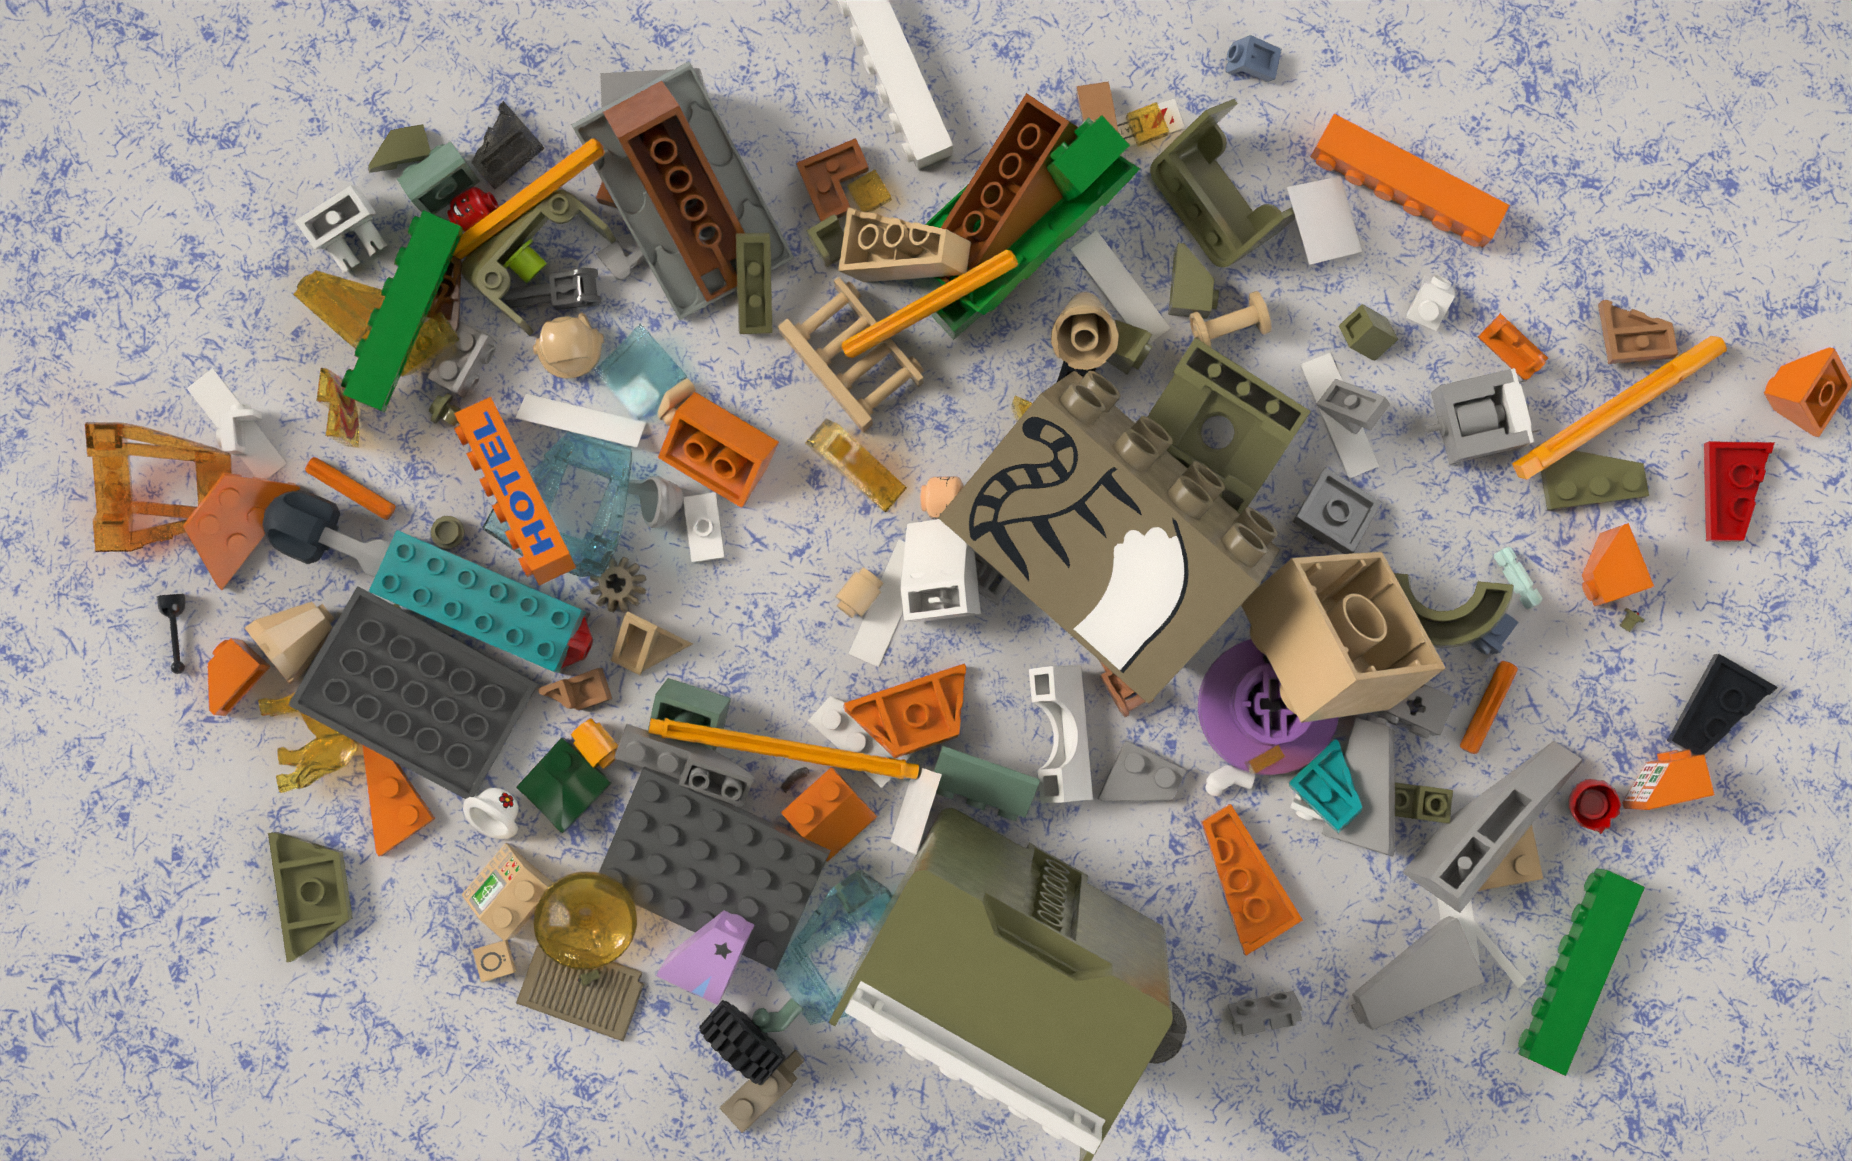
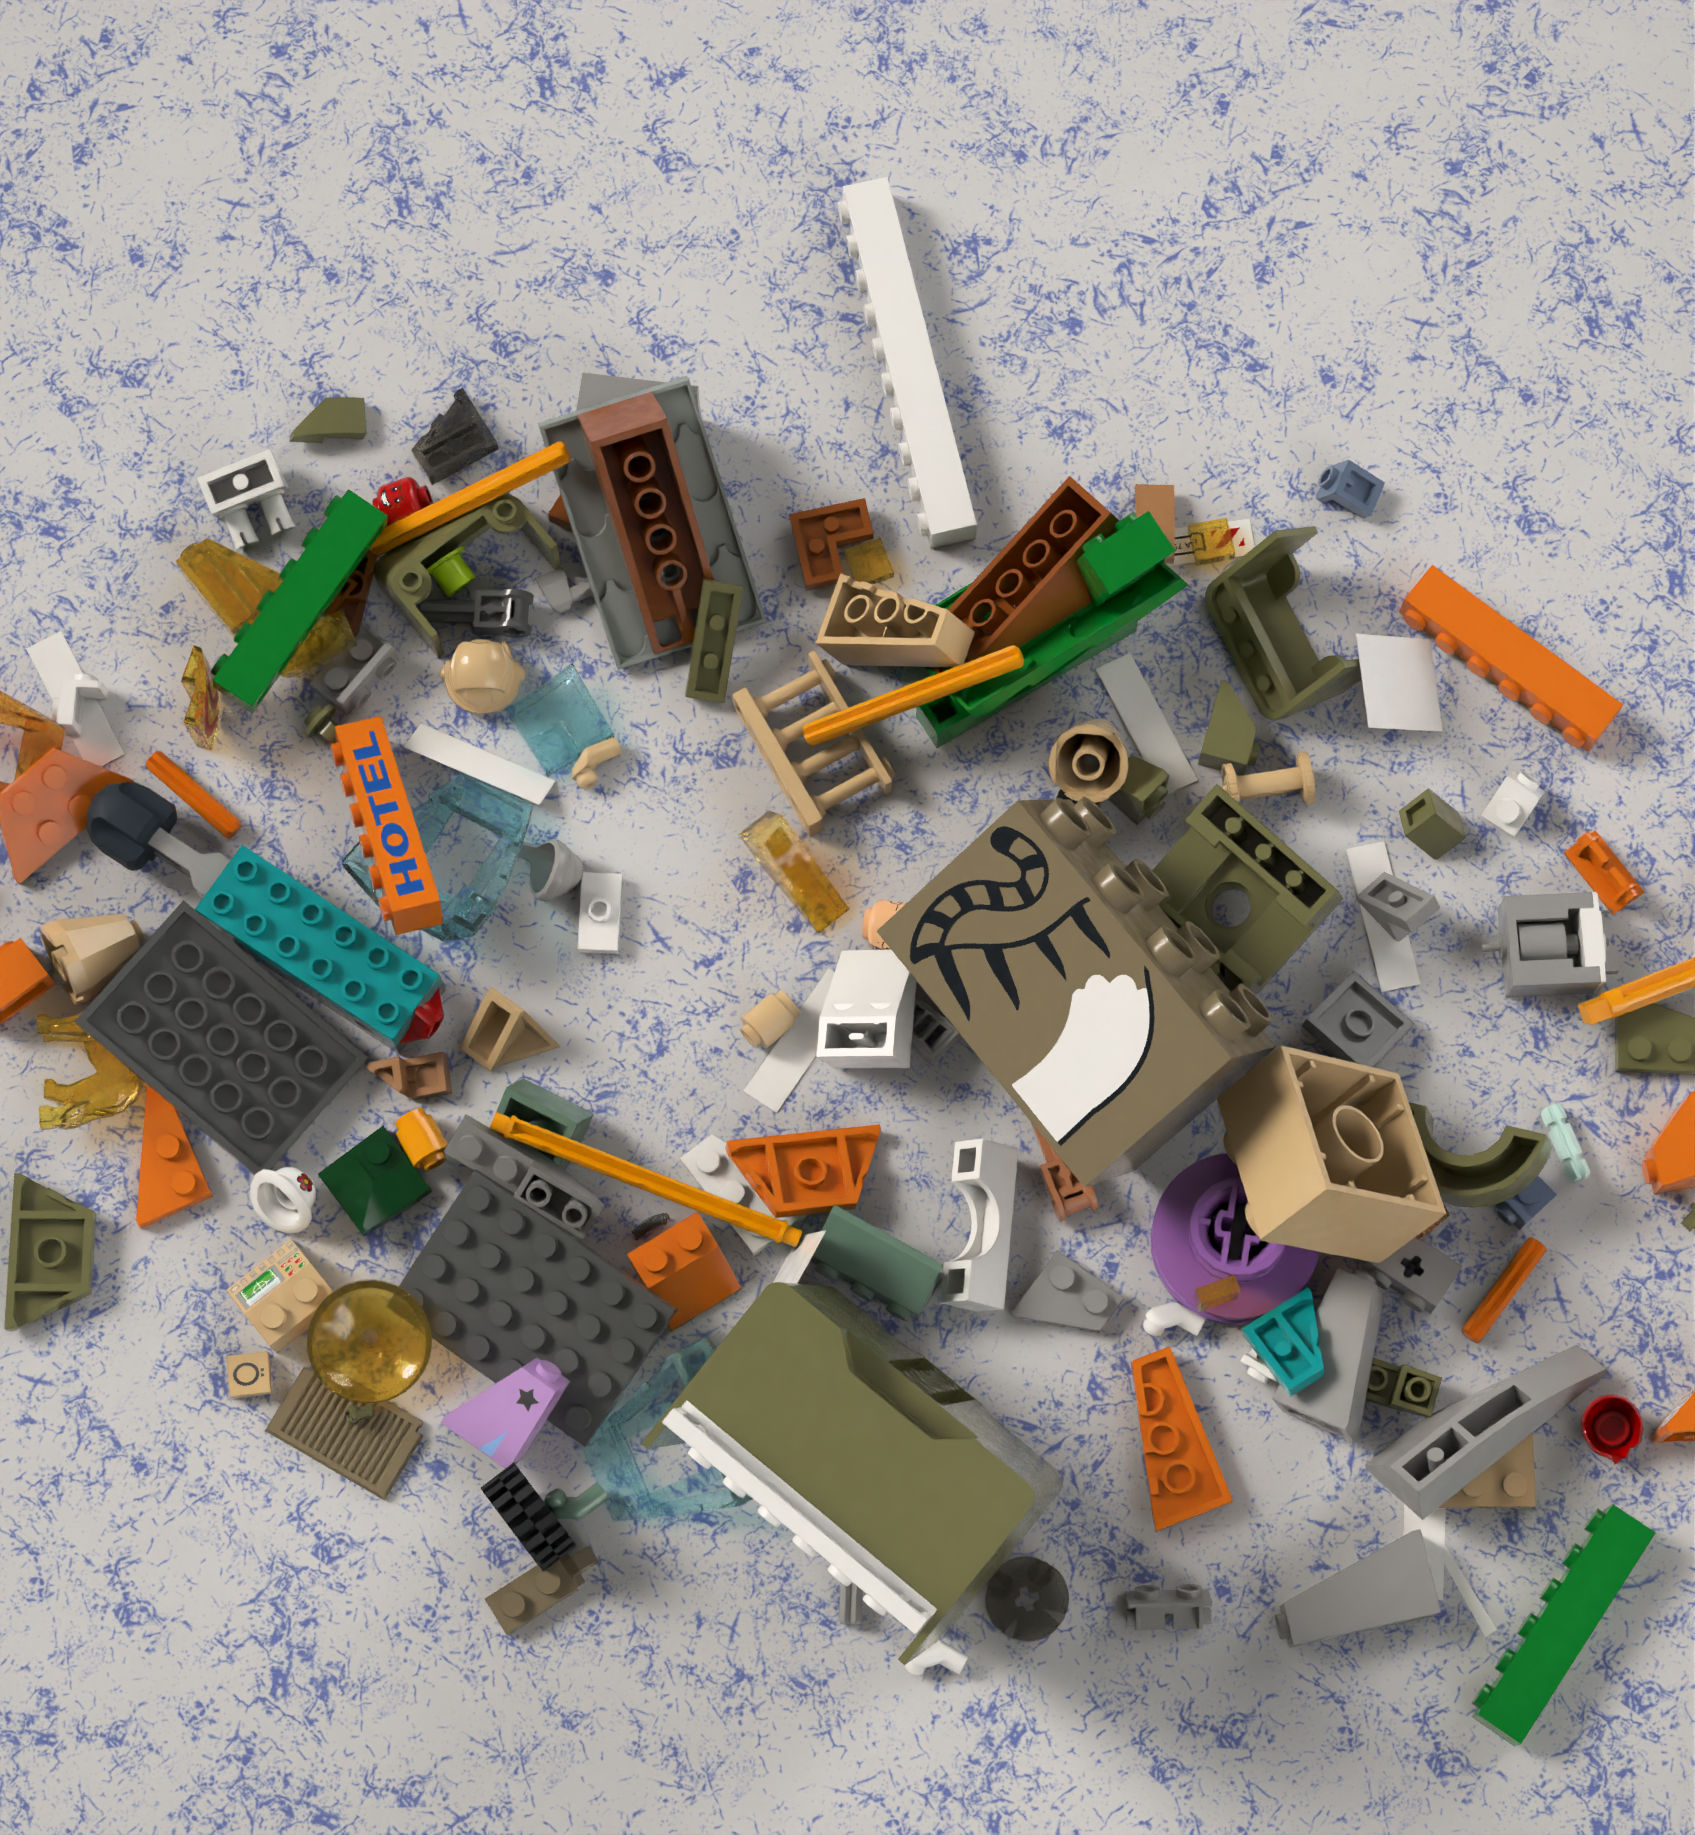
camera: 10 degrees right, 10 degrees down
(437, 178) = (370, 460): sand green slope -> none
(447, 532) = (298, 863): olive plate -> none
(612, 596) = (500, 951): dark tan gear -> none
(717, 449) = (633, 824): orange slope -> none
(827, 240) = (808, 607): olive panel -> none

